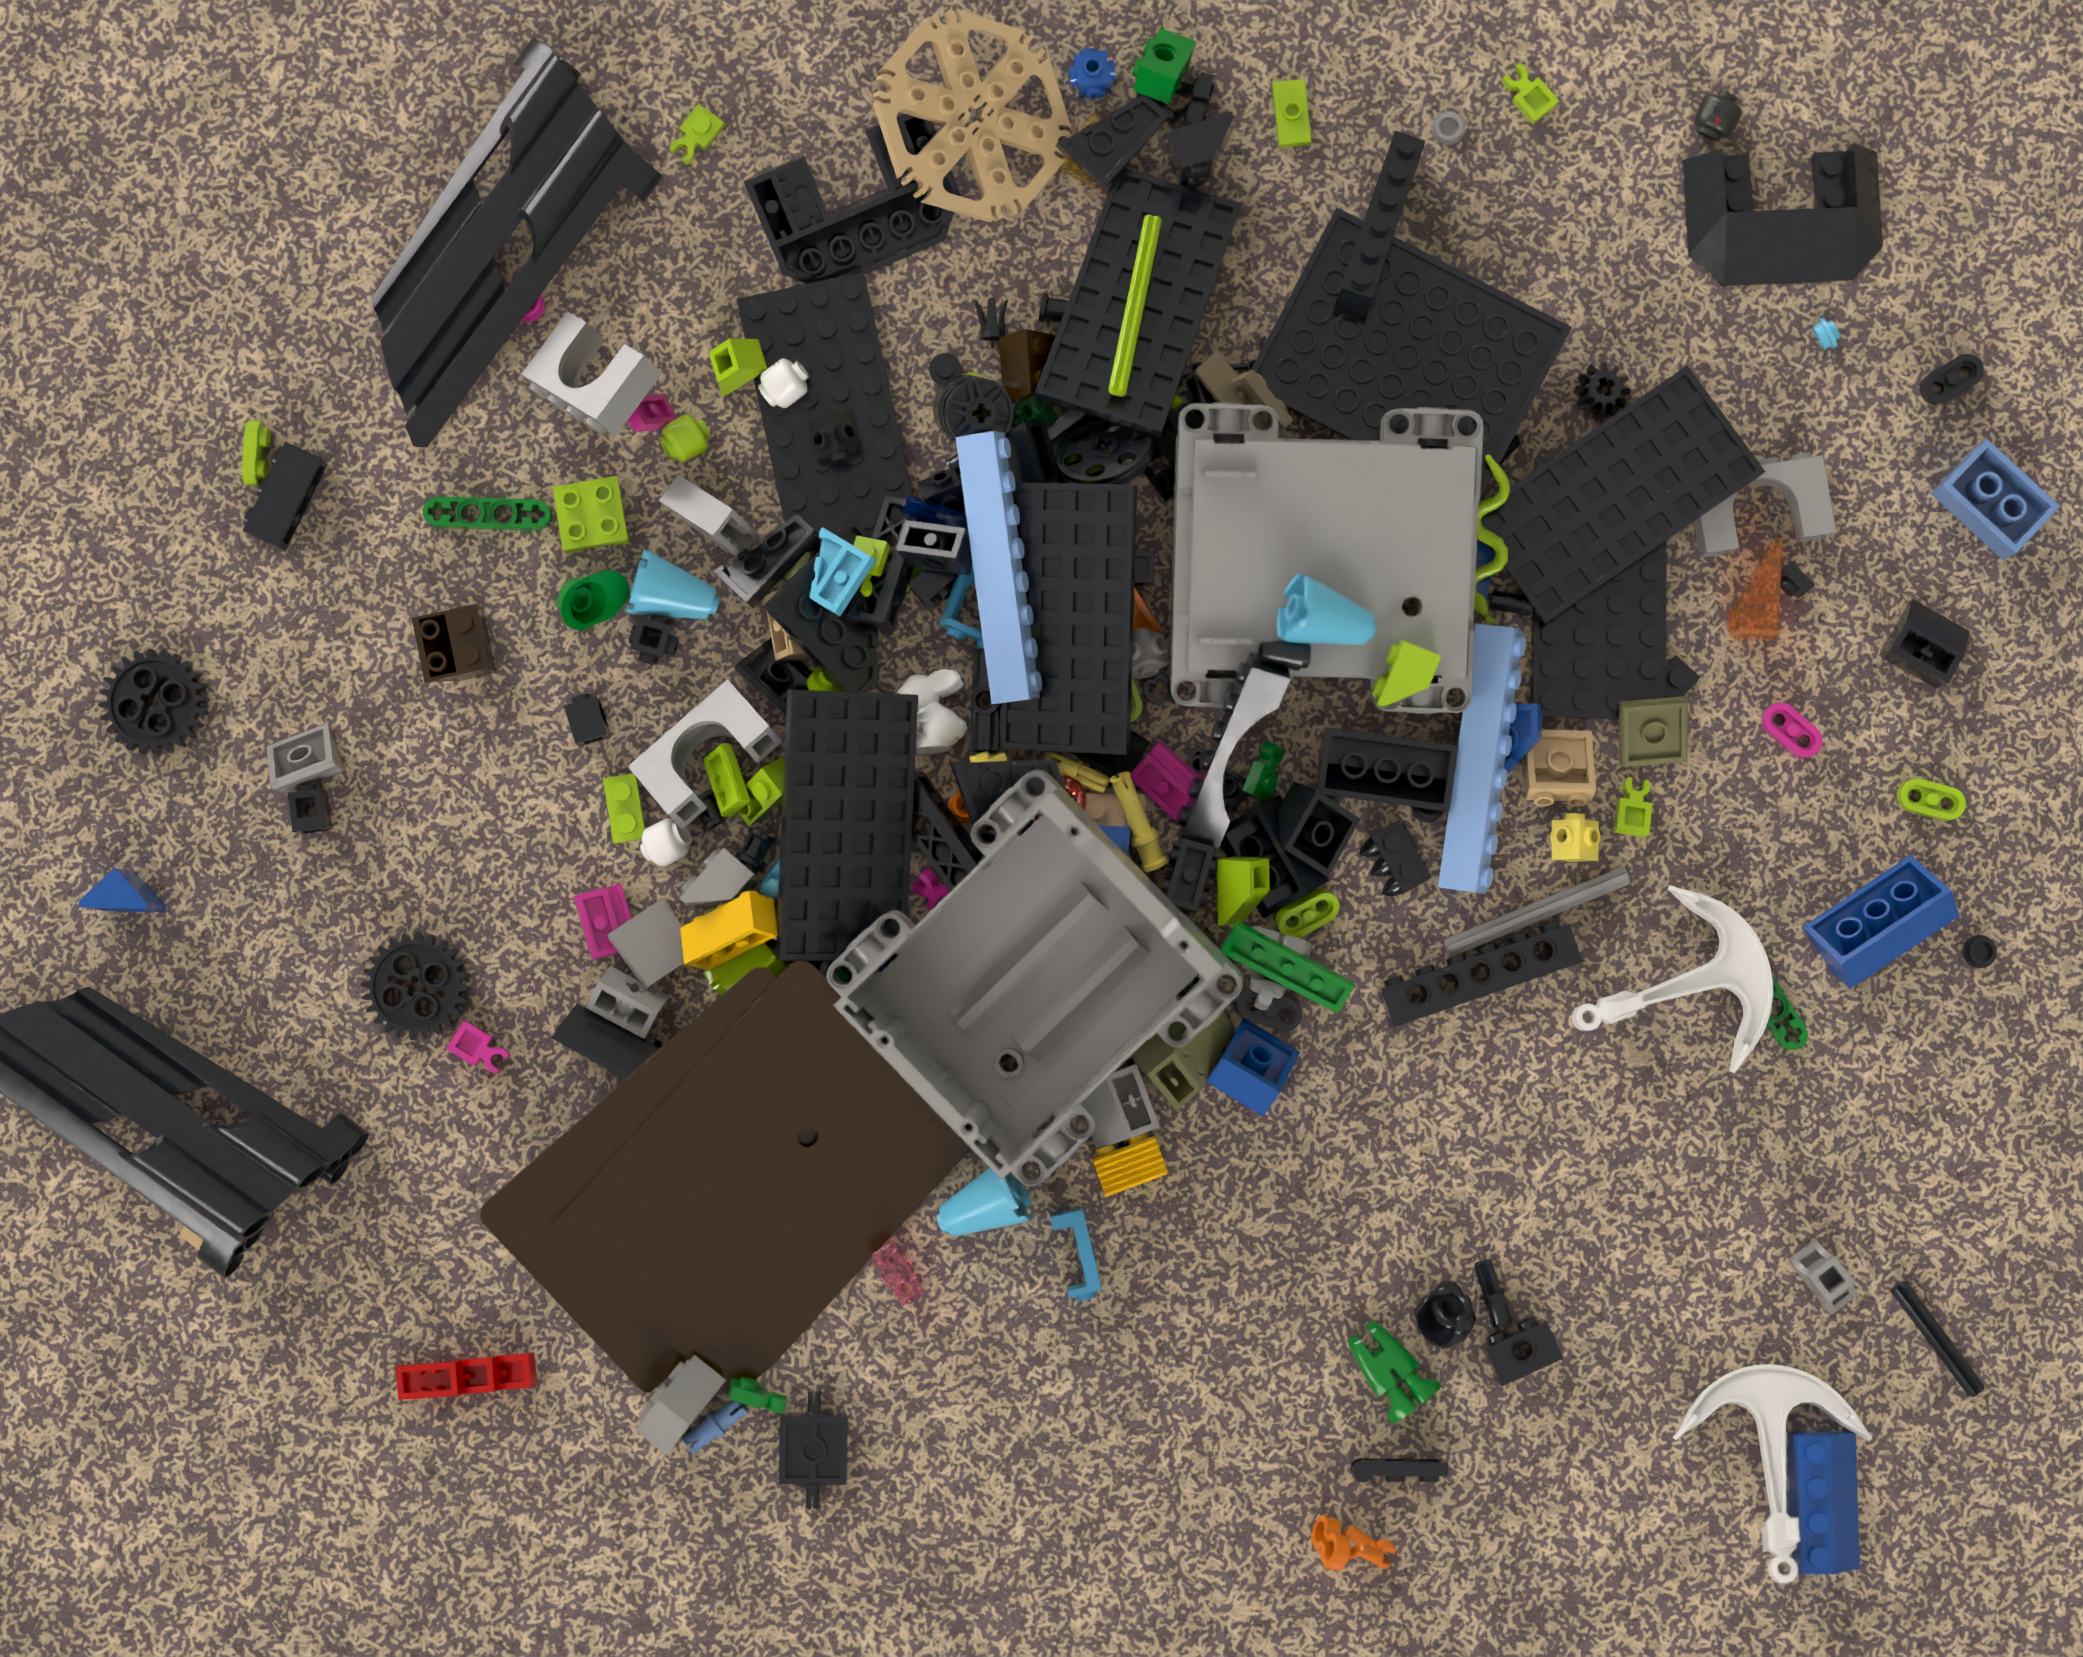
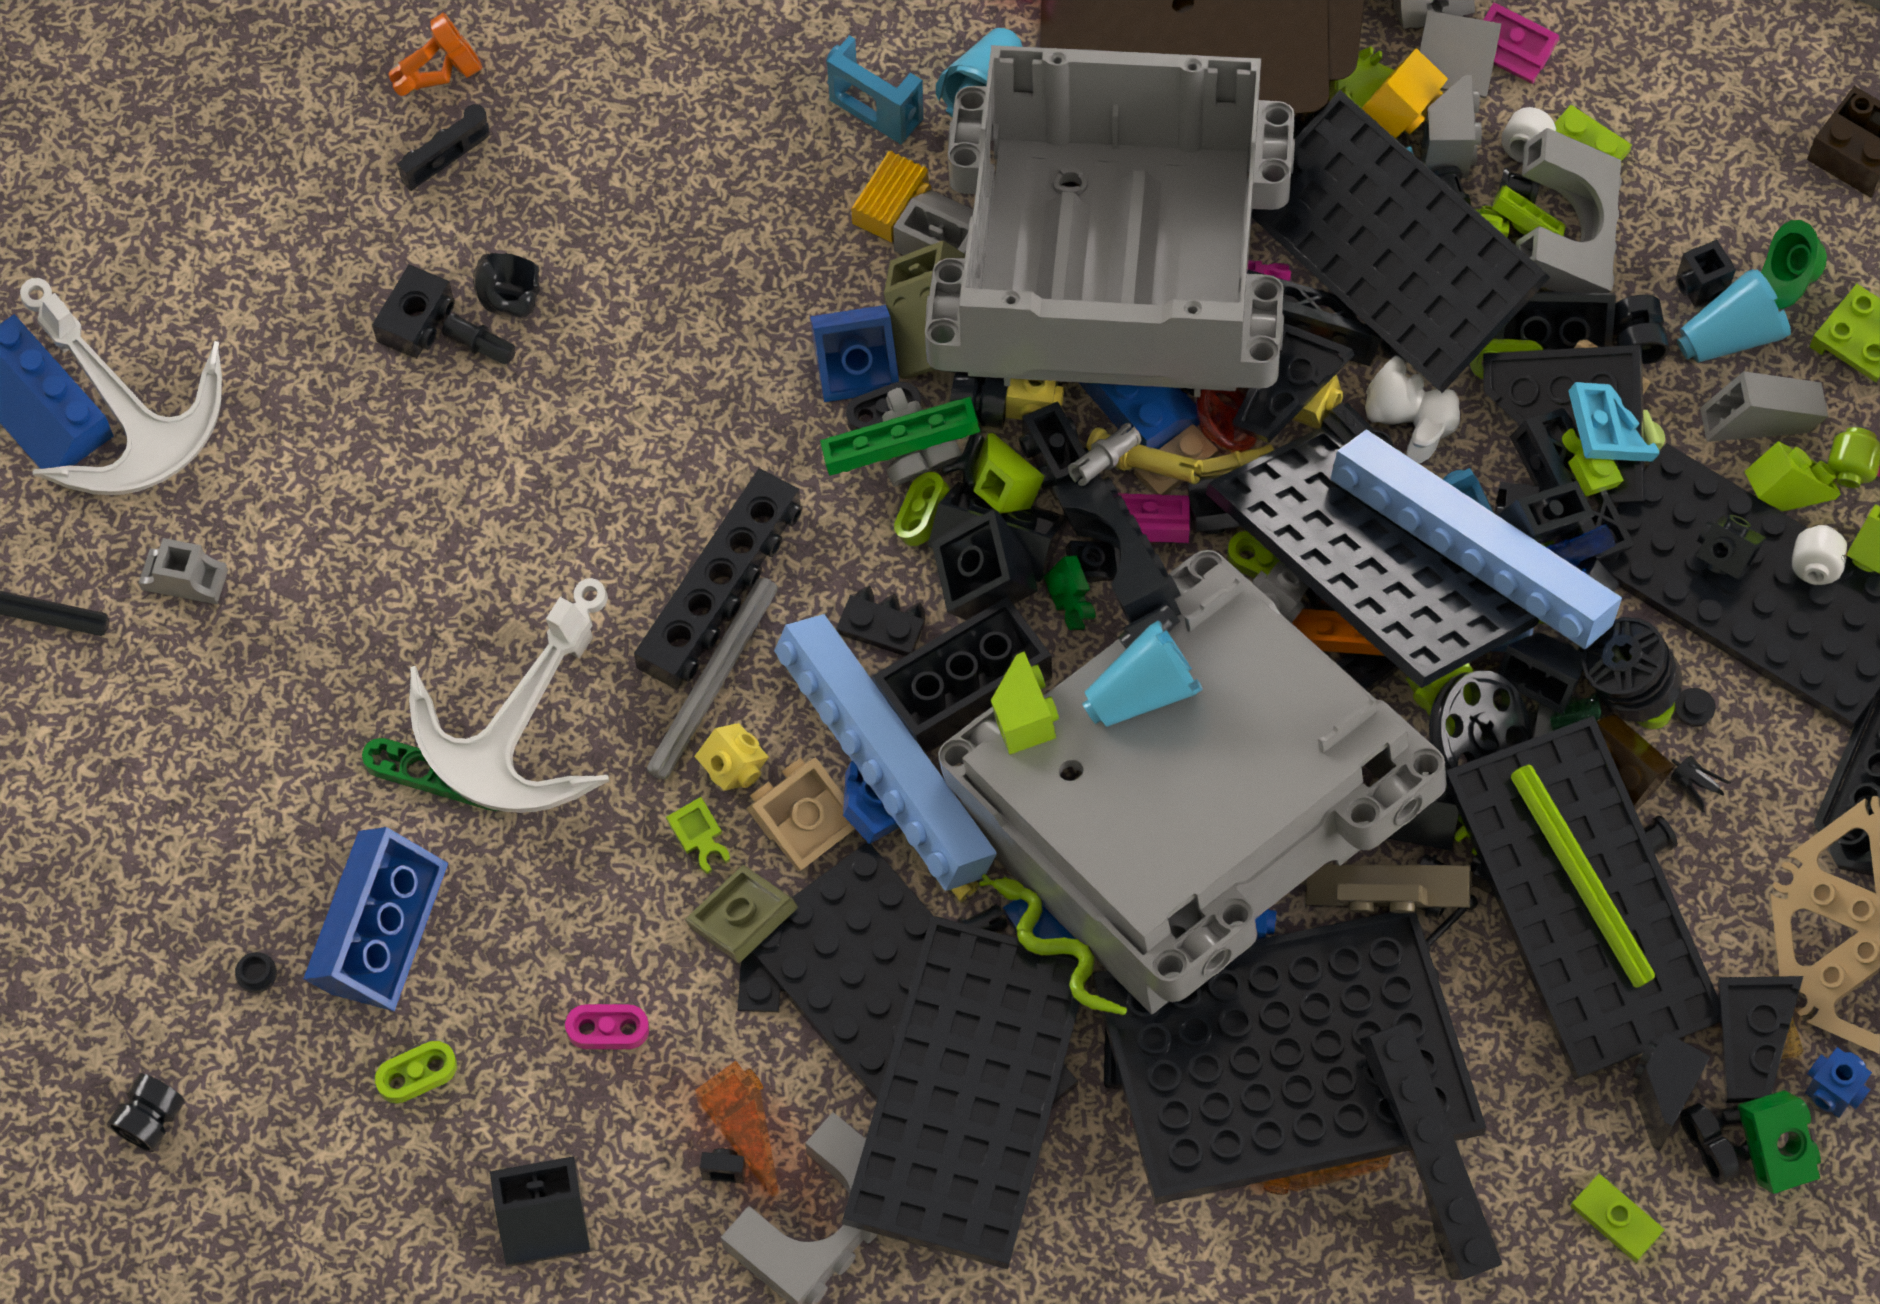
camera: 140 degrees right, 20 degrees down
(587, 720) = (1692, 174): black brick -> none
(741, 456) = (1791, 479): none -> lime slope
(741, 630) = (1640, 322): none -> black wheel
(763, 567) = (1676, 407): black wing -> none
(1171, 835) = (1104, 454): none -> light grey pin
(1254, 917) = (967, 460): none -> black bar
(1387, 1366) = (522, 214): green piece -> none
(1591, 381) = (1052, 1195): black gear -> none

